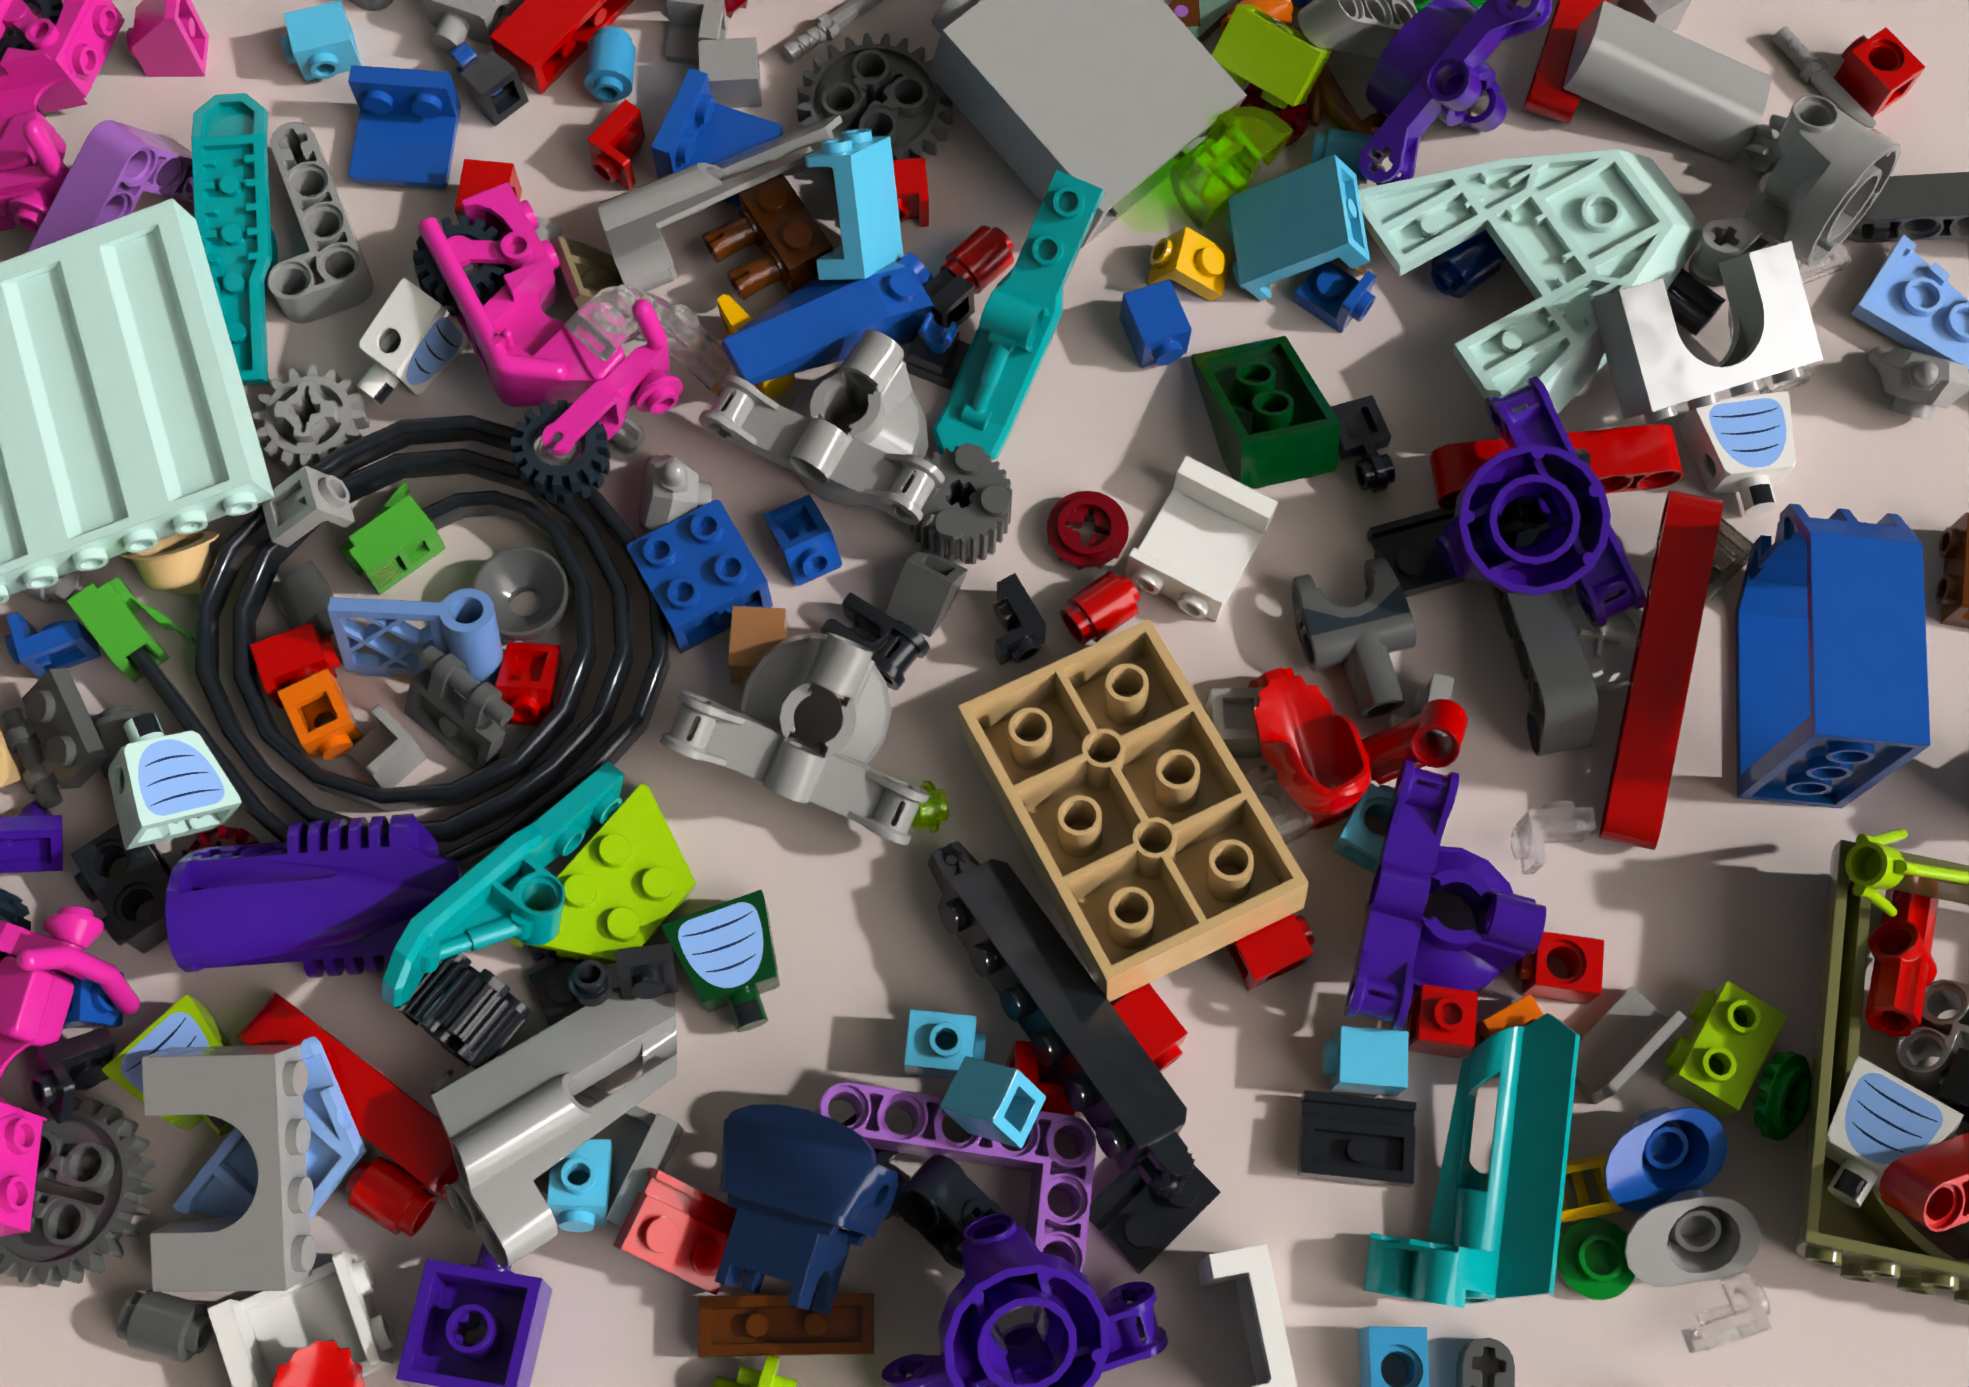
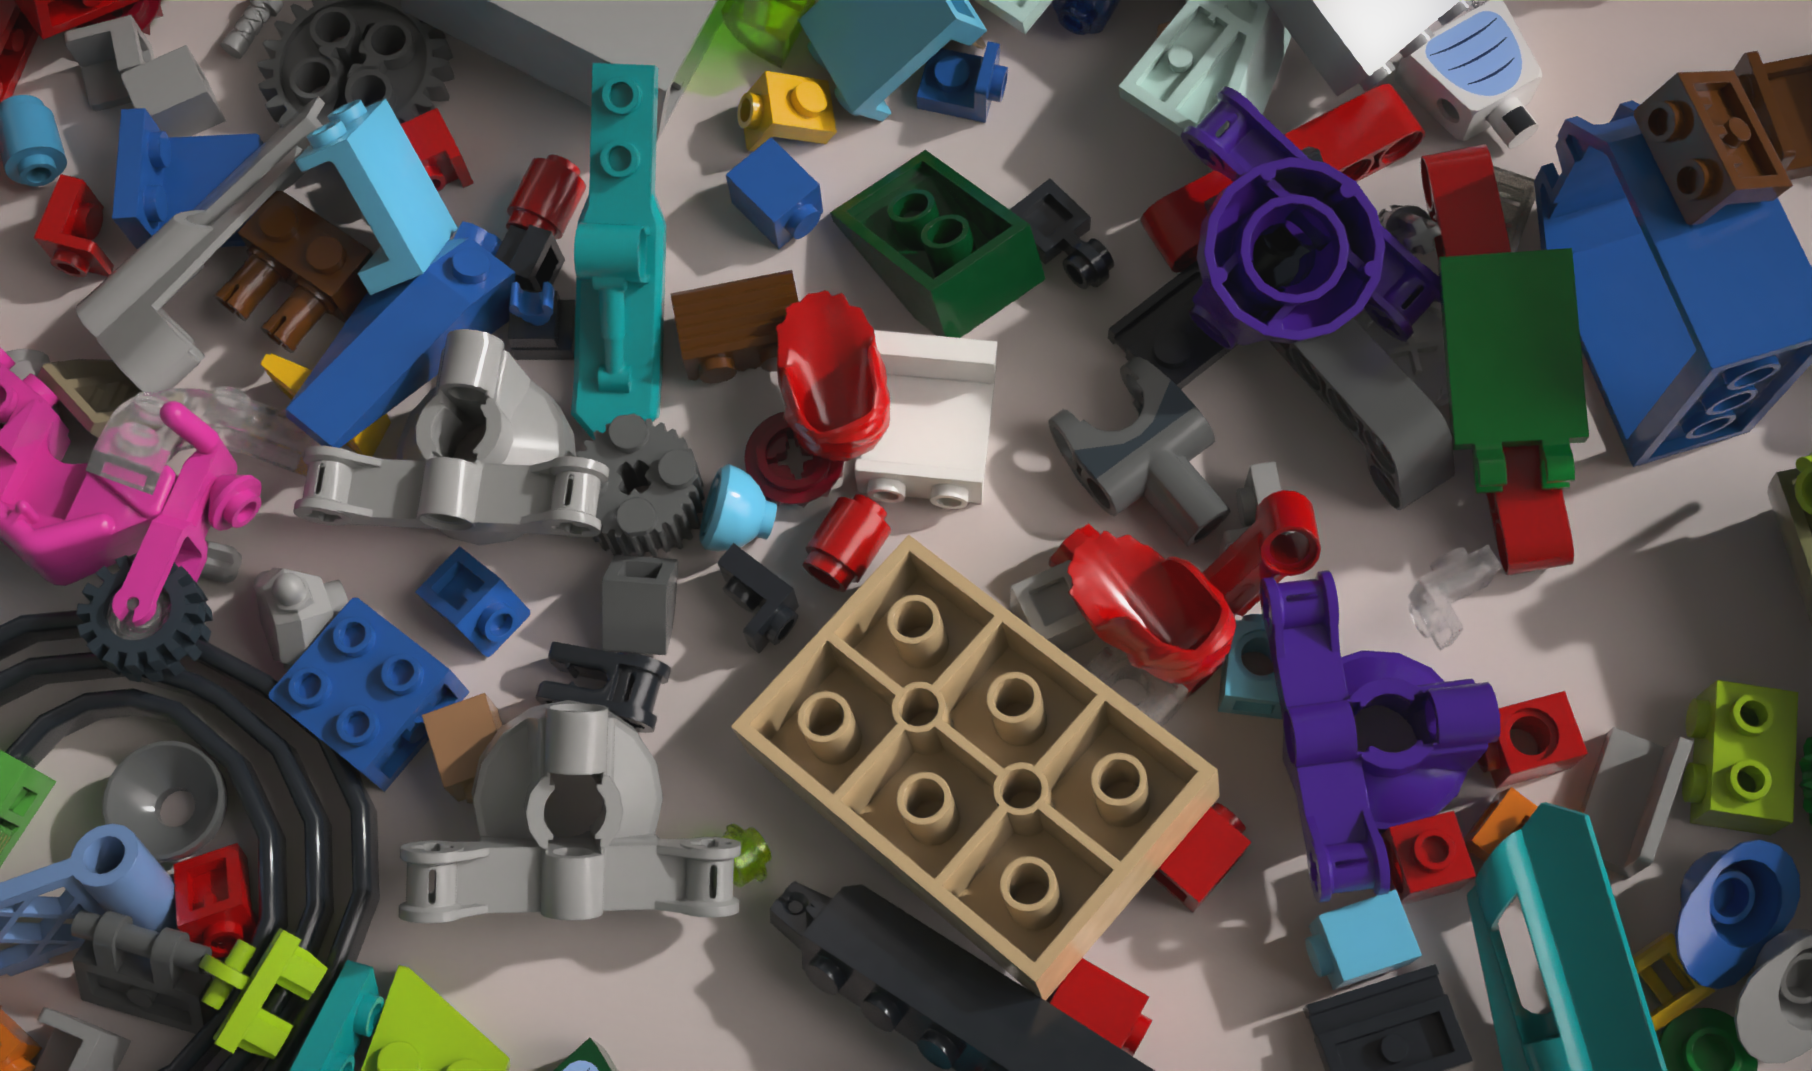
camera: 15 degrees left, 0 degrees up
(561, 743) = (246, 1022): none -> lime hips
(1026, 551) = (735, 511): none -> medium azure brick
(1086, 414) = (732, 325): none -> reddish brown brick
(1140, 479) = (832, 377): none -> red hair
(1637, 542) = (1410, 227): none -> dark grey axle
(1672, 674) = (1513, 361): none -> green tile
(1888, 563) = (1710, 144): none -> reddish brown bracket

